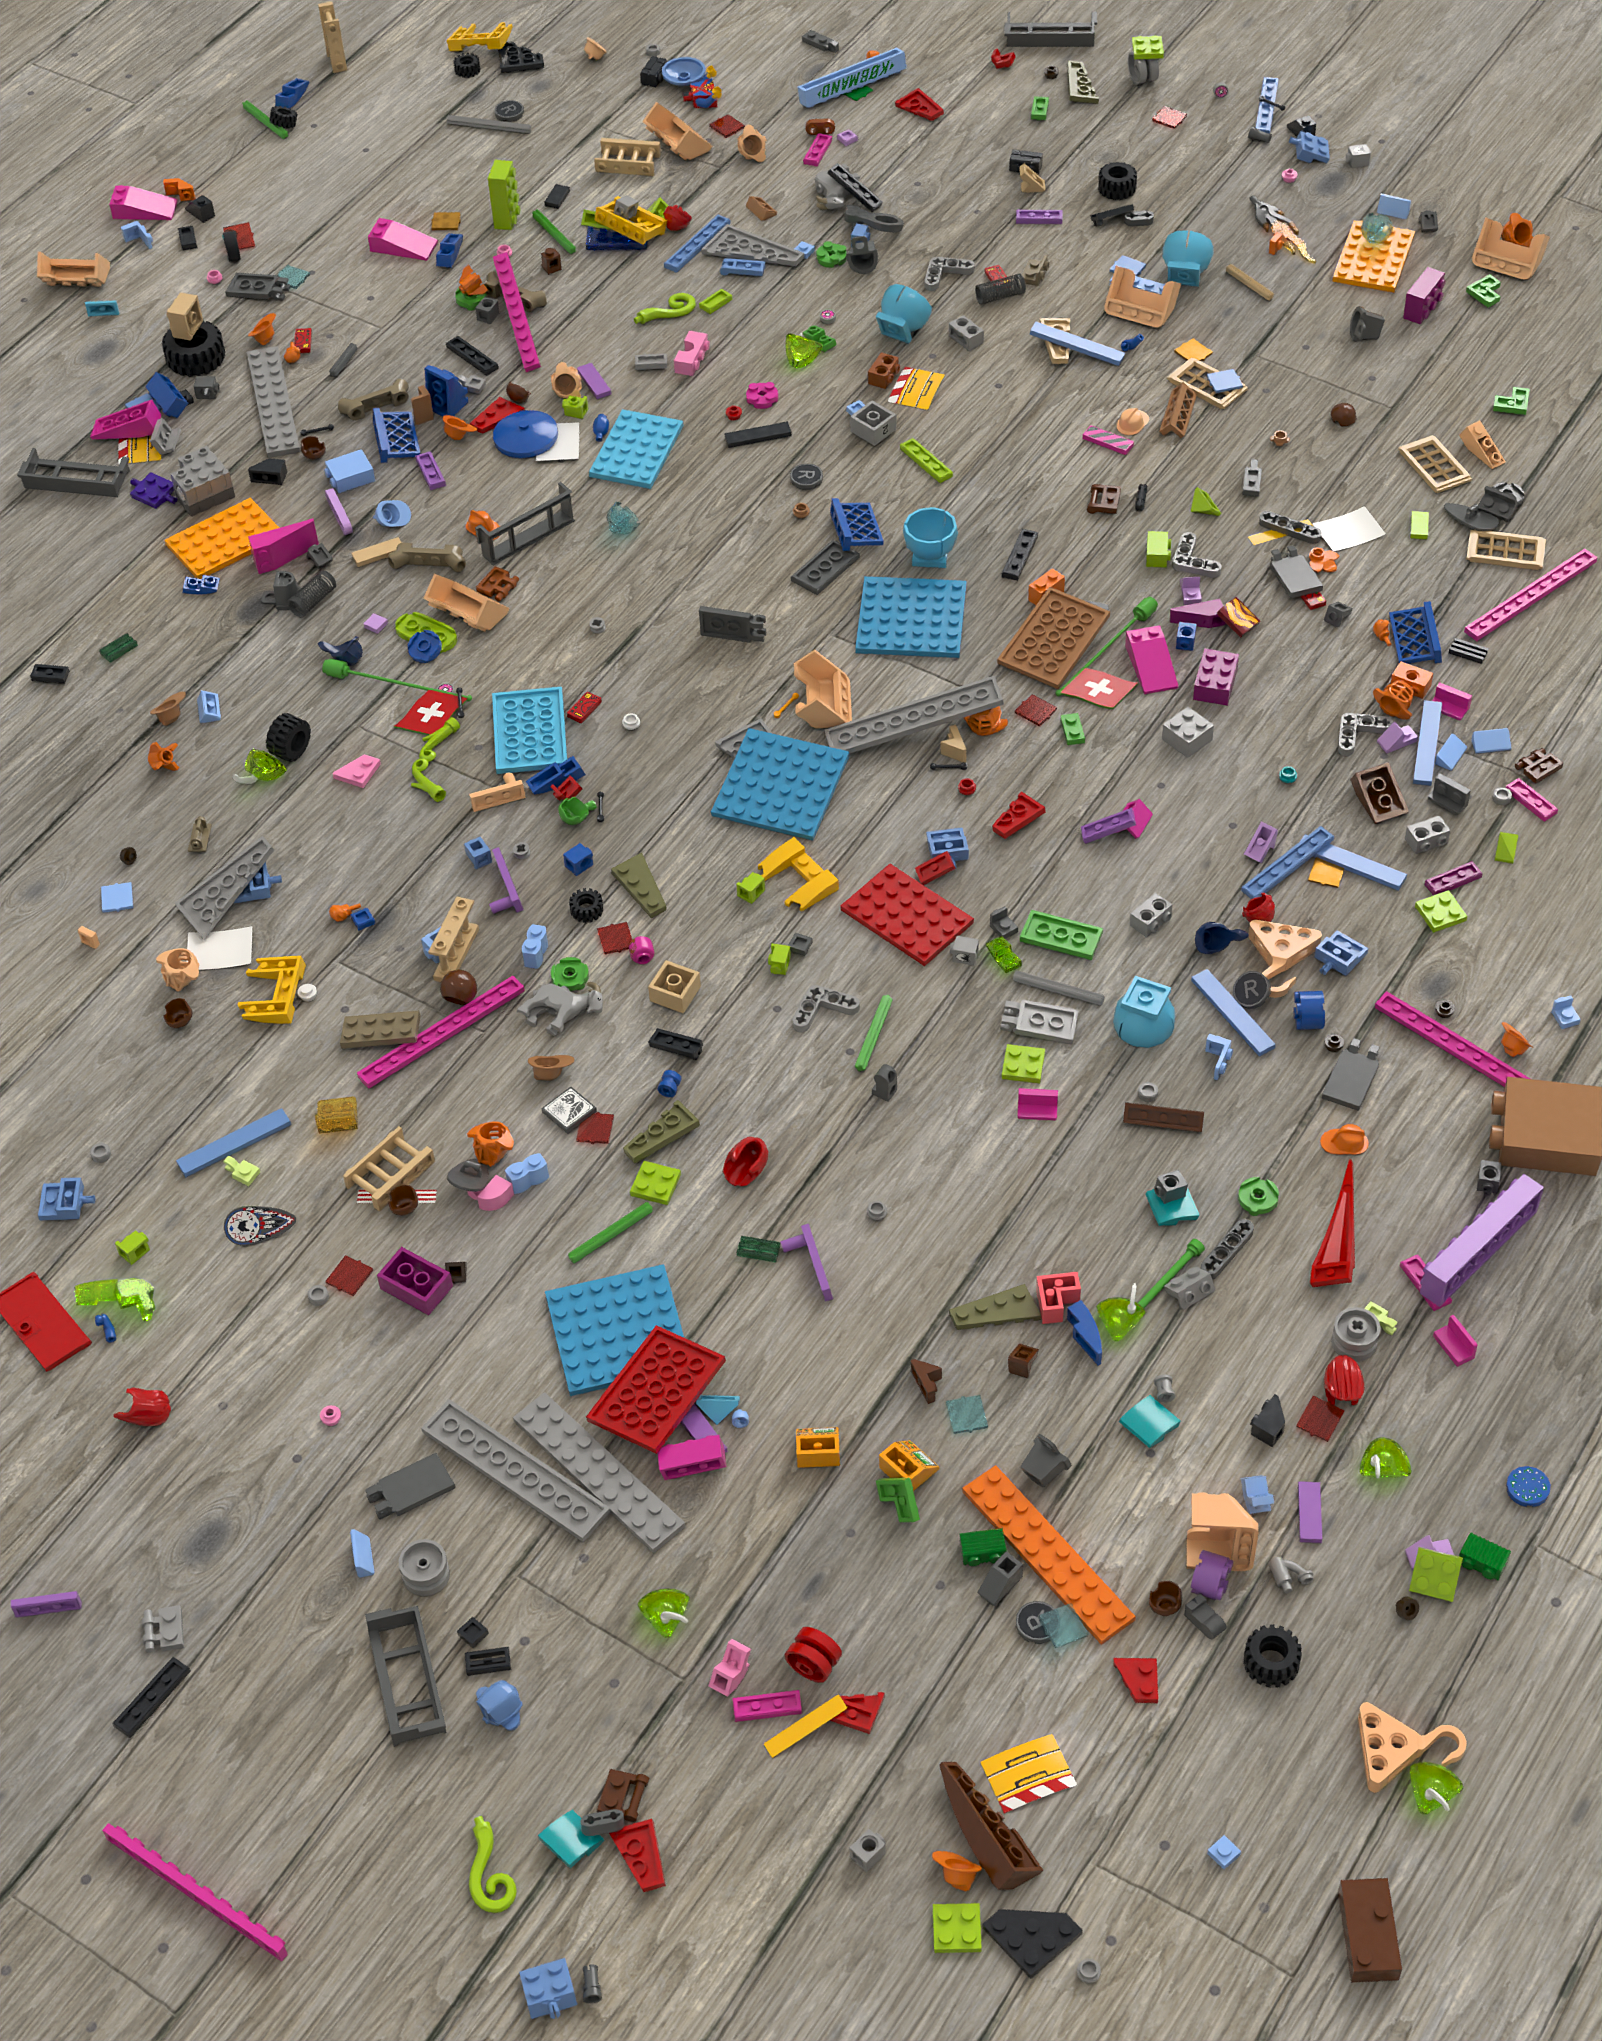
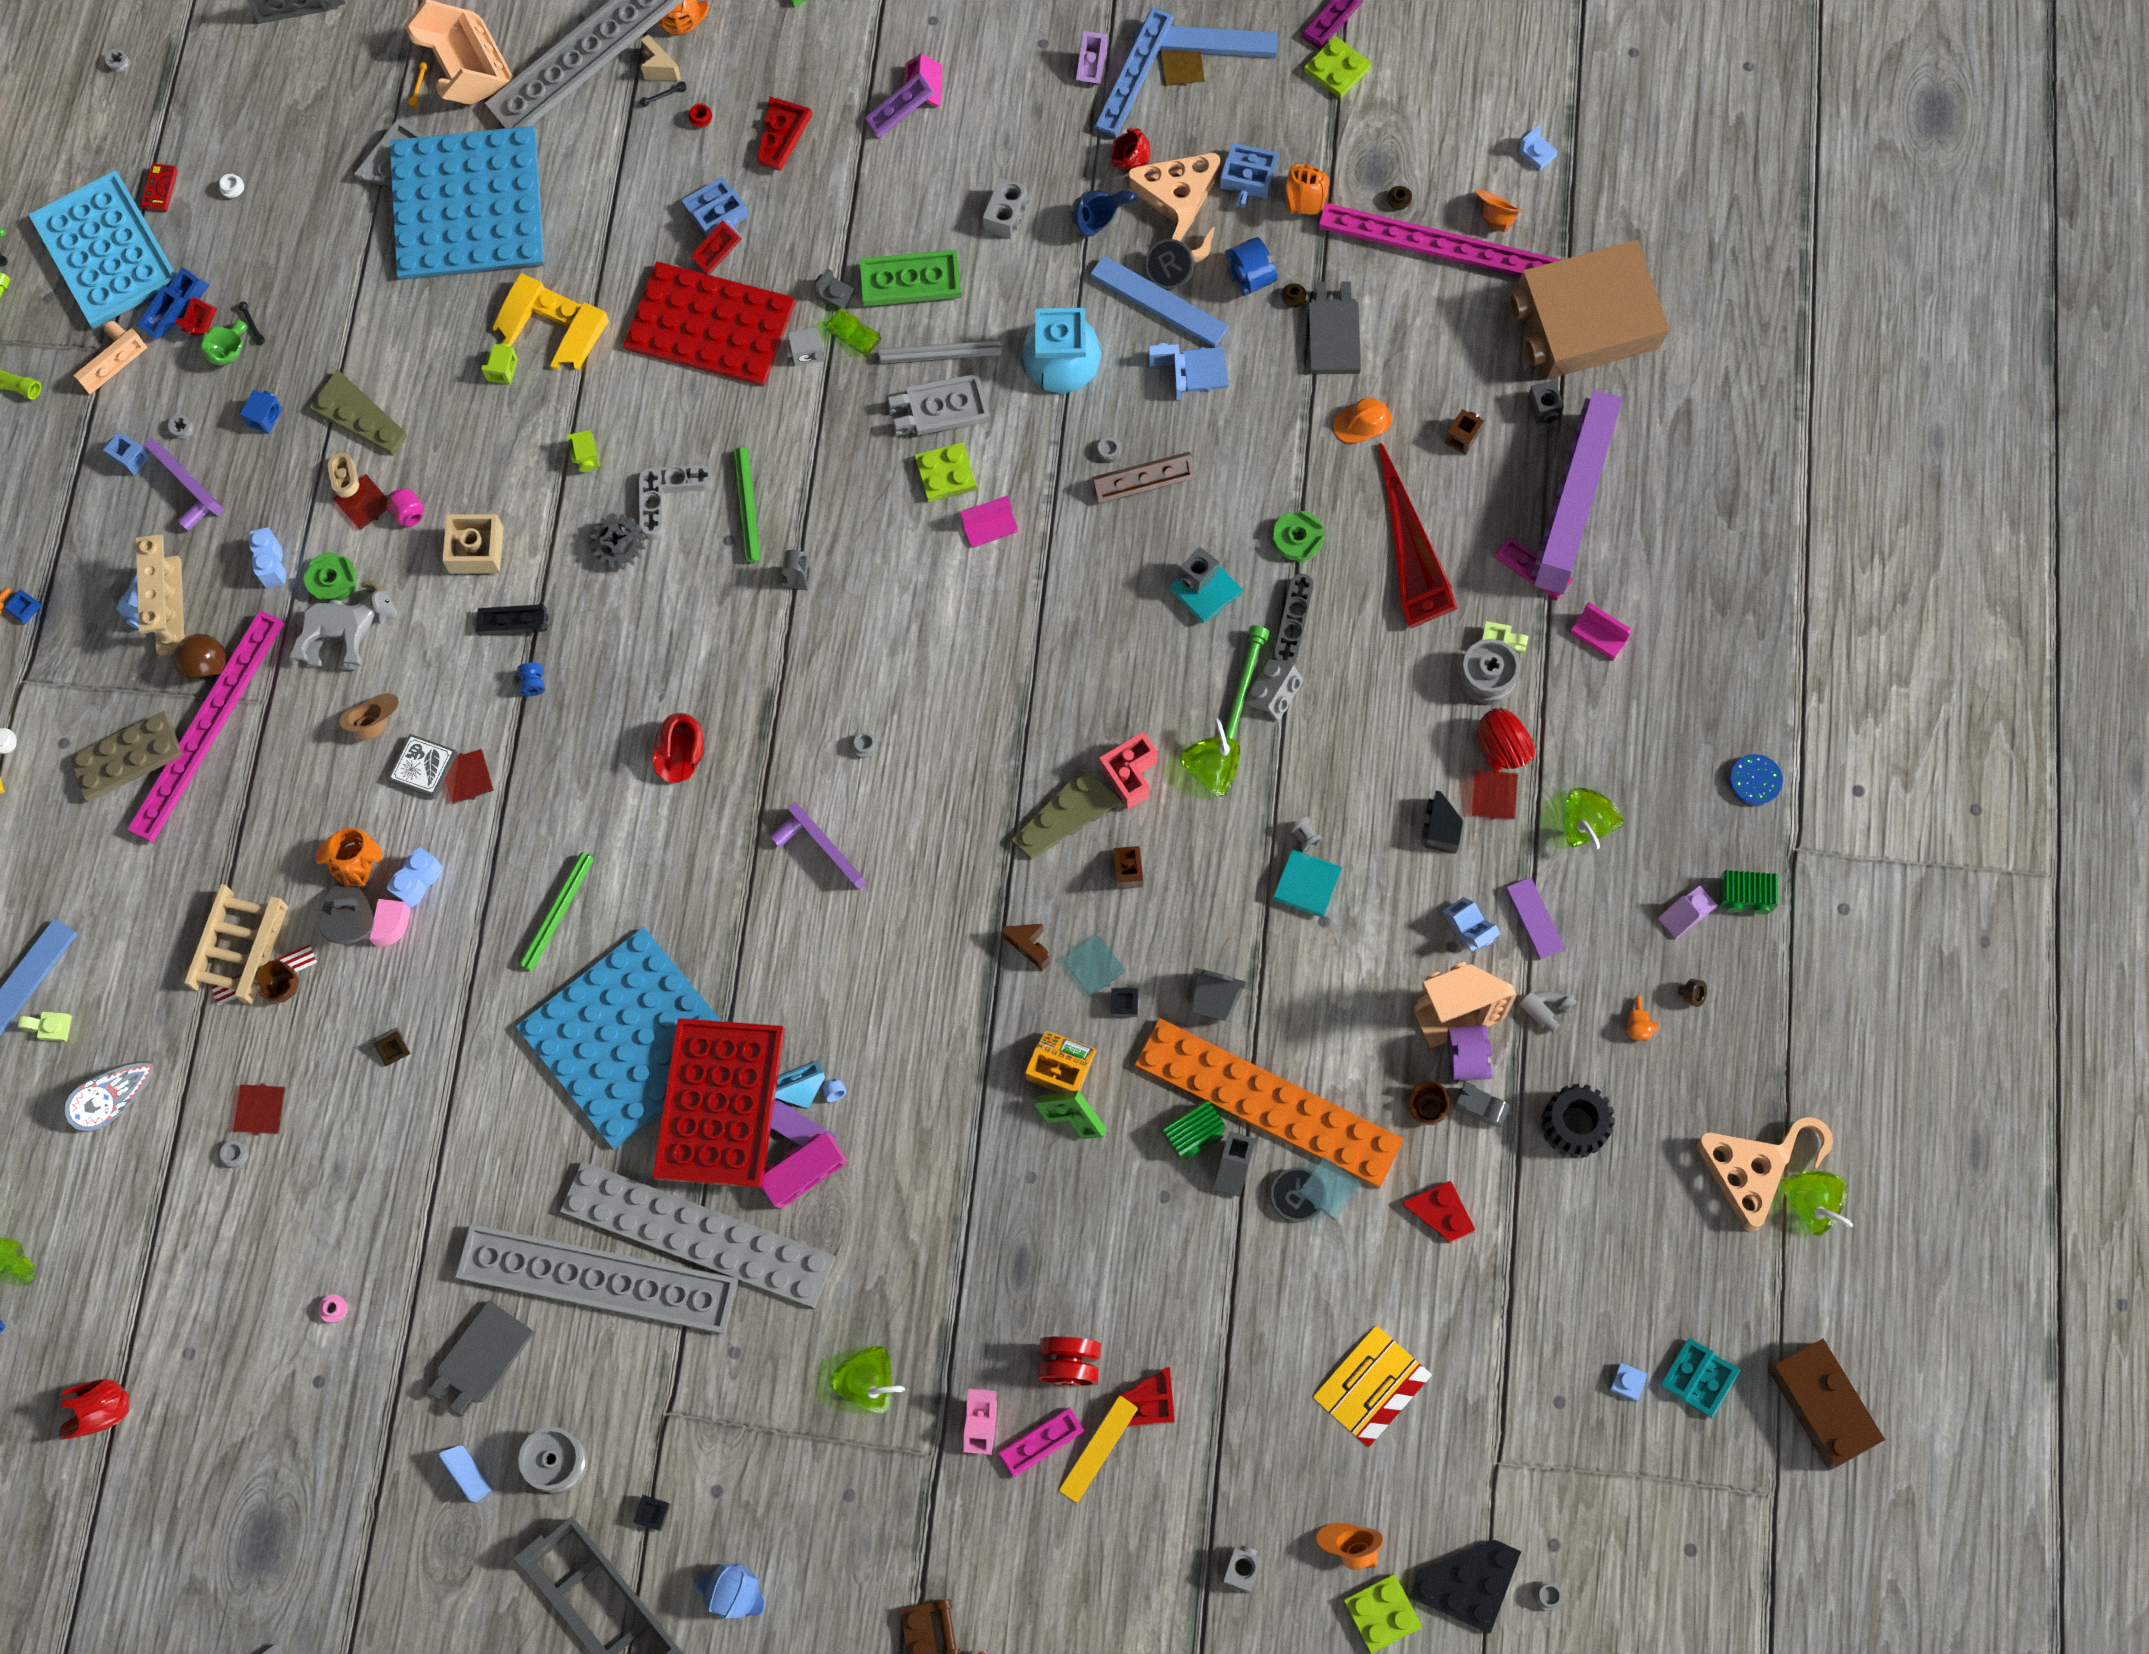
camera: 25 degrees left, 20 degrees up
(337, 1115) = (131, 897): clear yellow bracket -> none
(415, 1280) = (348, 1085): magenta brick -> none
(487, 1665) = (692, 1549): black tile -> none
(589, 912) = (298, 460): black tyre -> none
(611, 915) = (343, 475): none -> tan plate
(655, 1182) = (578, 820): lime plate -> none
(667, 1129) = (558, 741): olive wing -> none
(759, 1246) = (747, 855): clear green tile -> none
(772, 1021) = (608, 536): none -> dark grey gear
(800, 944) = (599, 418): dark grey plate -> none
(817, 1447) = (943, 1086): light orange slope -> none
(975, 1444) = (1124, 1002): none -> black plate
(993, 1843) = (1374, 1491): reddish brown wedge -> none
(1085, 1330) = (1183, 799): blue slope -> none
(1245, 1067) = (1205, 369): none -> medium blue piece
(1281, 1873) = (1700, 1378): none -> teal slope
(1353, 1614) = (1638, 1024): none -> orange piece
(1374, 977) = (1306, 190): none -> orange piece
(1416, 1173) = (1464, 431): none -> reddish brown brick
(1435, 1574) = (1709, 938): lime plate -> none

